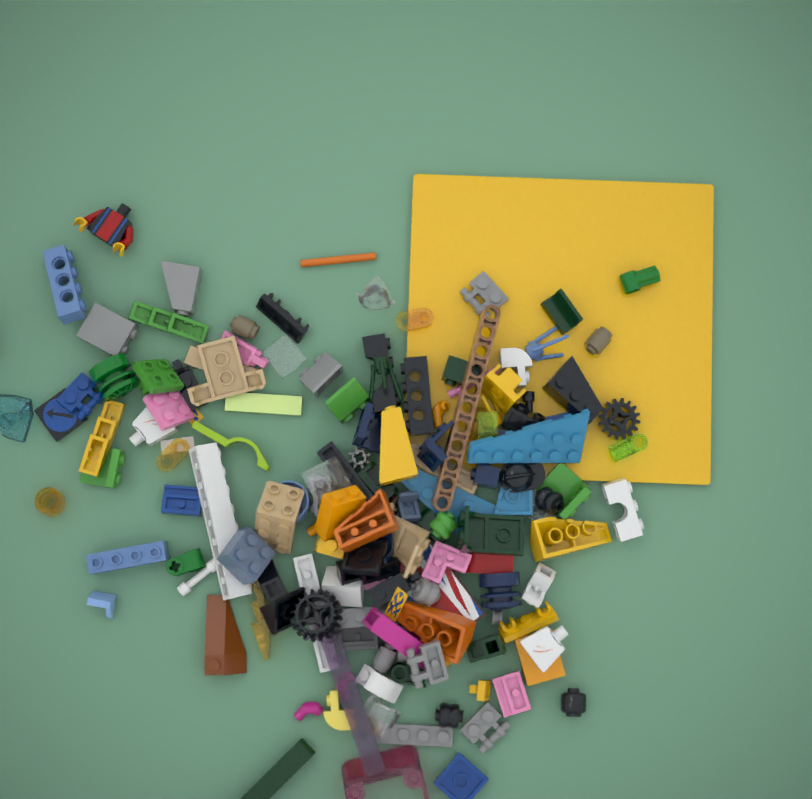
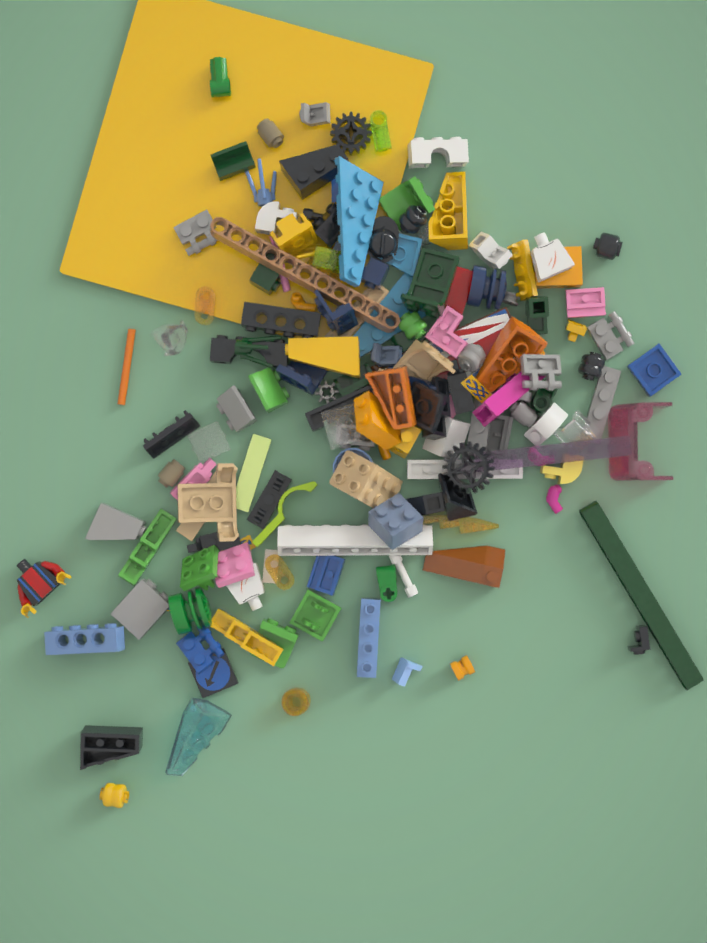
camera: 75 degrees left, 5 degrees up
(118, 658) = (462, 667): none -> light orange wheel
(138, 500) = (315, 615): none -> bright green plate
(241, 427) = (269, 499): none -> black plate
(628, 379) = (315, 114): none -> light grey bracket

